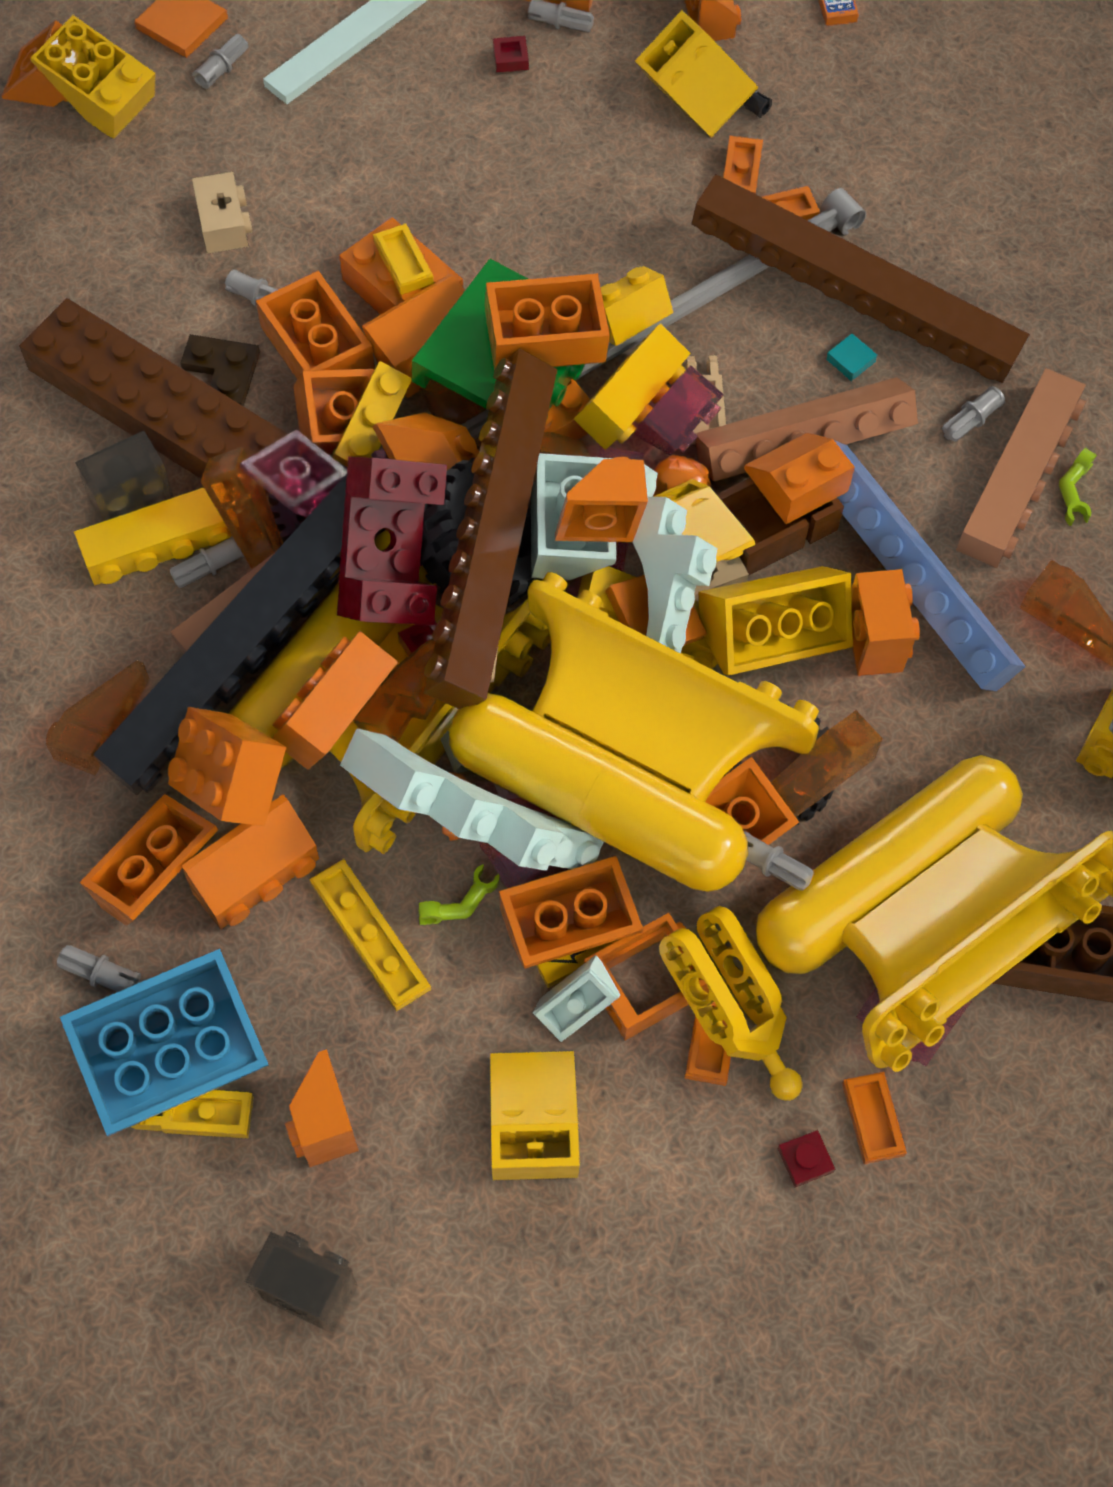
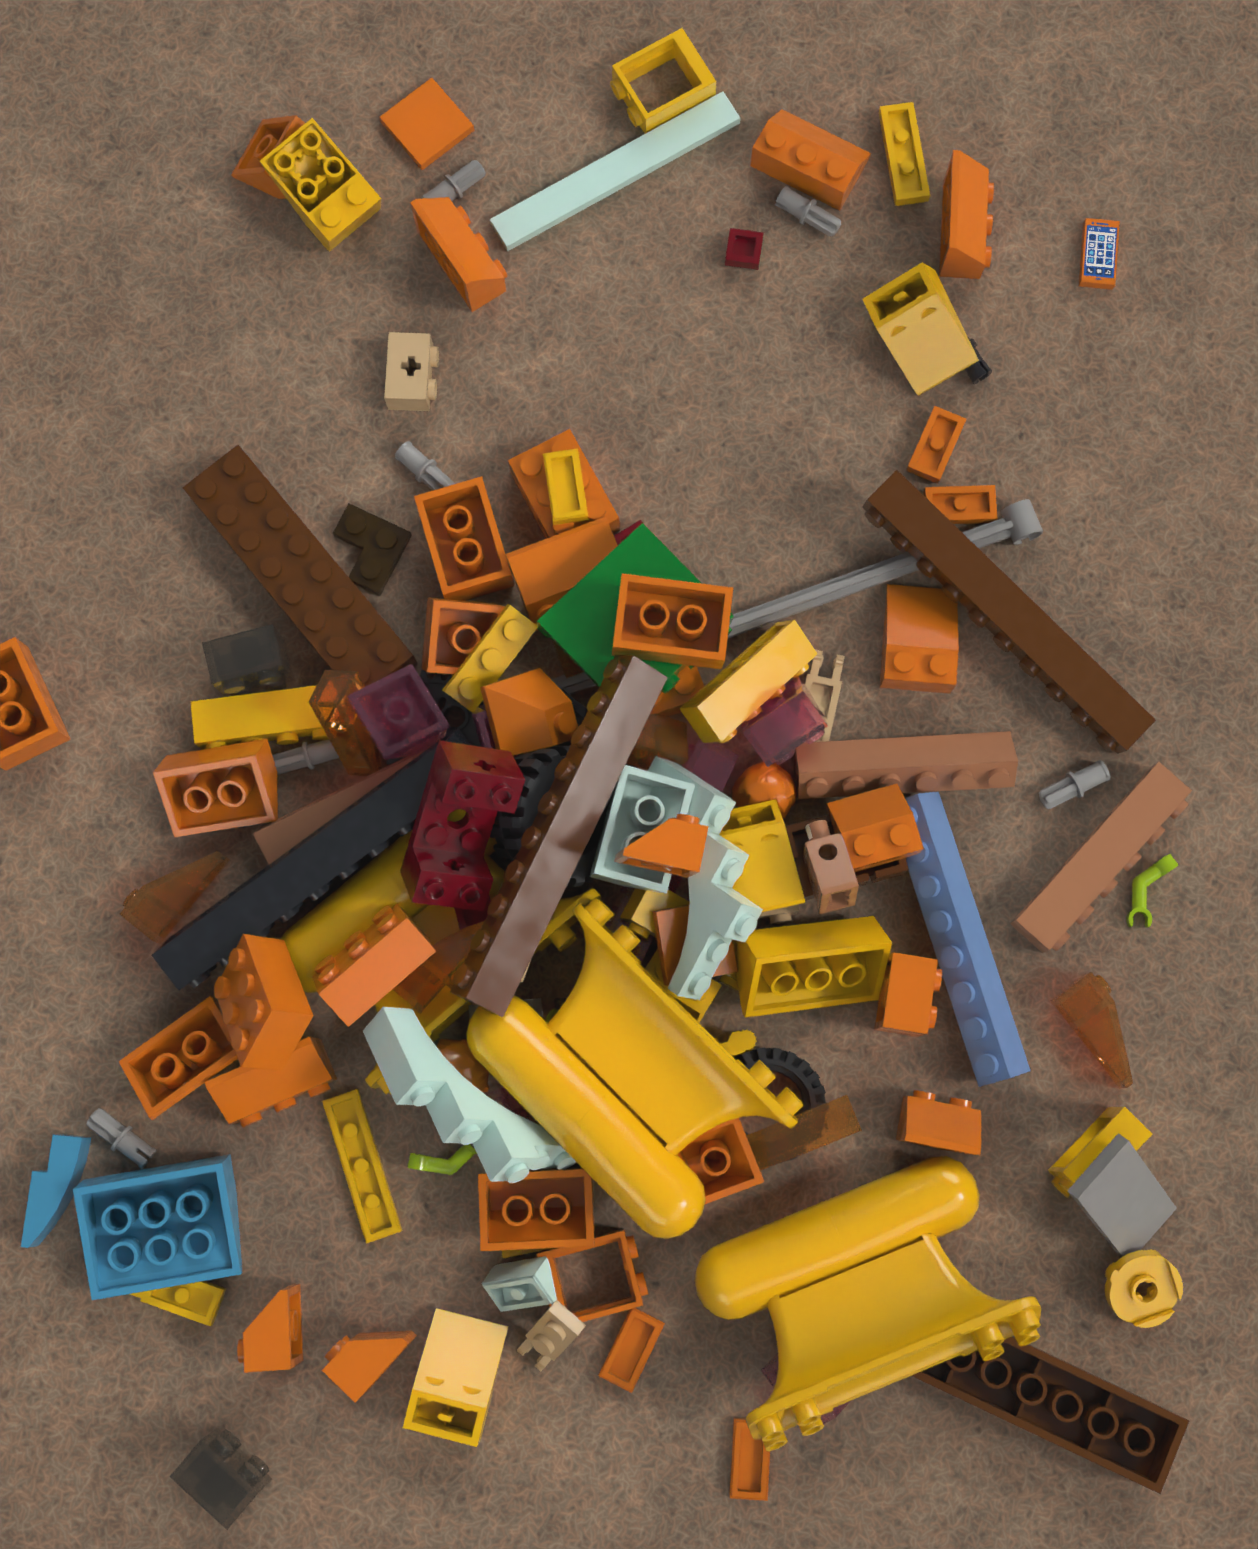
camera: 20 degrees right, 15 degrees up
(35, 1036) = (53, 1188): none -> dark azure slope
(123, 605) = (219, 787): none -> orange slope
(240, 106) = (459, 250): none -> orange slope
(431, 1111) = (363, 1359): none -> orange slope
(625, 1030) = (552, 1334): none -> tan hinge
(635, 303) = (771, 590): yellow slope -> none
(736, 1037) = (679, 1316): yellow piece -> none
(770, 514) = (831, 879): none -> nougat torso
(778, 864) = (727, 1222): light grey axle -> none
(784, 330) = (919, 640): none -> orange slope
(806, 1158) = (680, 1479): dark red plate -> none
(851, 357) = (977, 689): teal tile -> none
(947, 737) = (940, 1124): none -> orange slope

